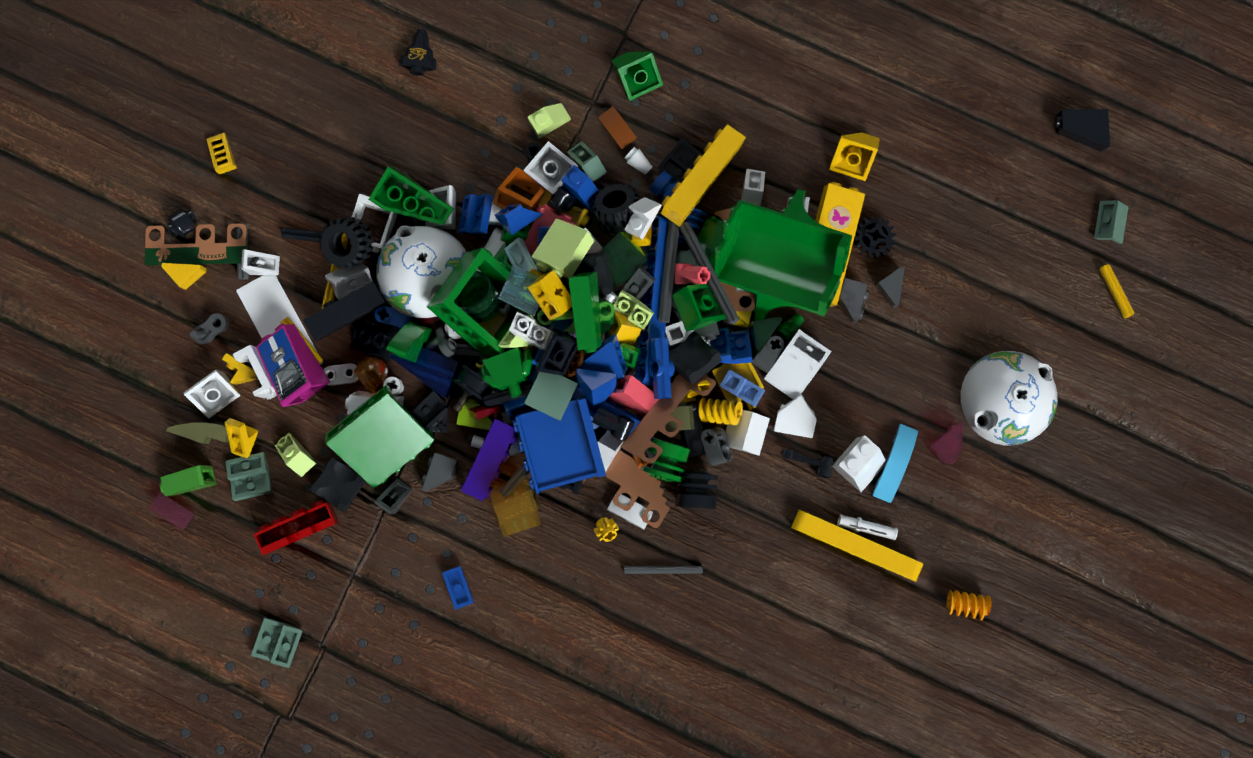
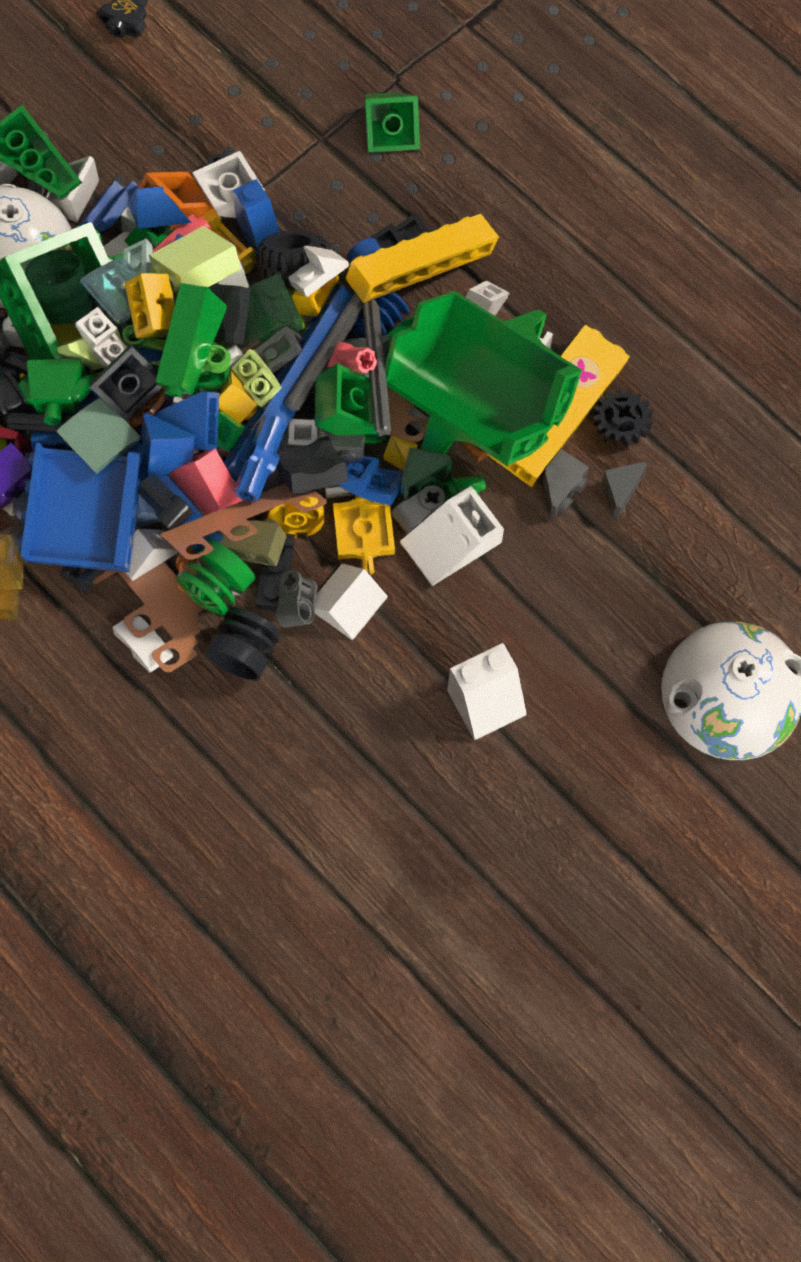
camera: 15 degrees right, 15 degrees down
(548, 119) = (254, 134): yellowish green slope -> none
(563, 200) = (228, 224): black piece -> none
(587, 161) = (283, 200): sand green slope -> none
(606, 529) = (98, 652): yellow gear -> none
(617, 127) = (338, 174): dark orange slope -> none
(638, 160) = (347, 220): white cone -> none
(663, 569) = (154, 739): dark grey bar -> none
(720, 412) = (321, 555): yellow piece -> none
(742, 388) = (363, 536): medium blue slope -> none
(796, 418) = (422, 607): white slope -> none
(823, 465) = (435, 683): black brick -> none
(855, 155) = (635, 309): yellow slope -> none
(857, 545) = (440, 807): yellow beam -> none
(860, 525) = (436, 767): white pin -> none
(896, 463) = (537, 718): medium azure slope -> none
(948, 444) = (620, 717): clear pink slope -> none
(968, 603) = (566, 947): light orange piece -> none

